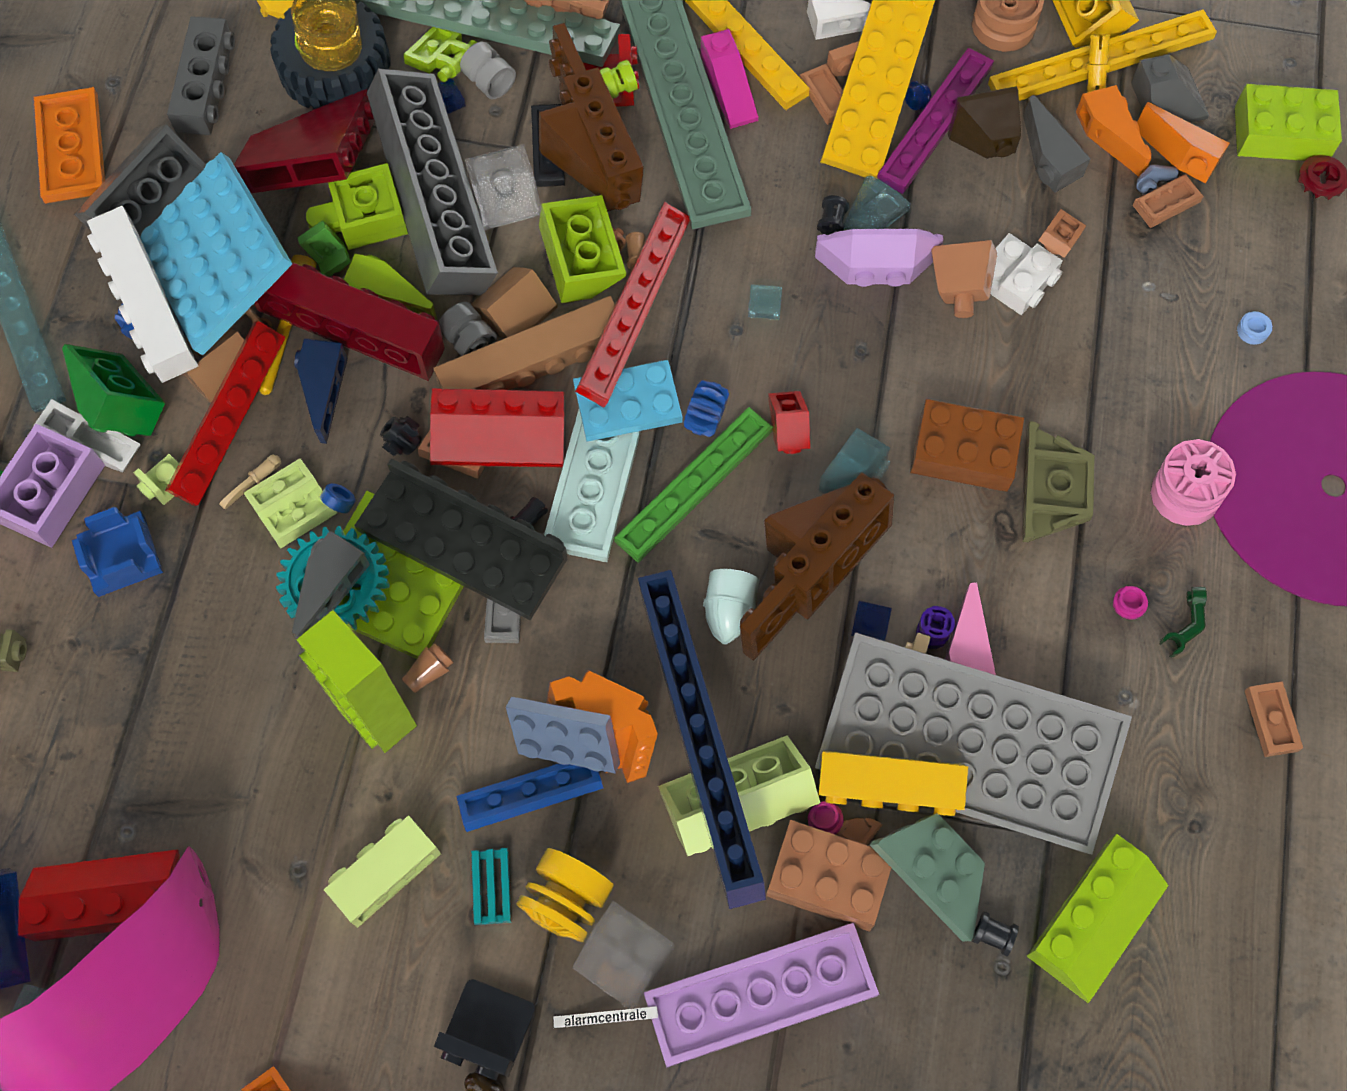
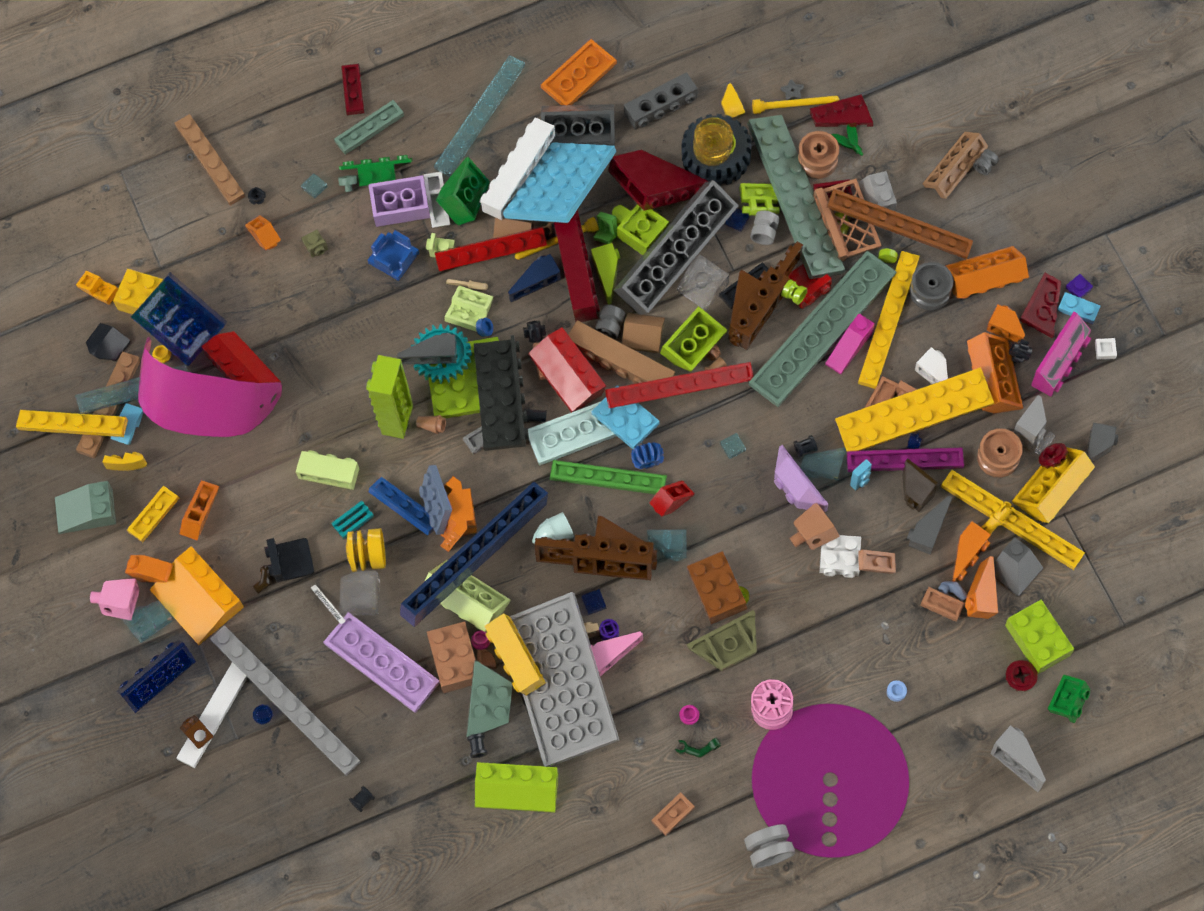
camera: 60 degrees right, 0 degrees up
(929, 173) = (861, 475): none -> medium azure plate

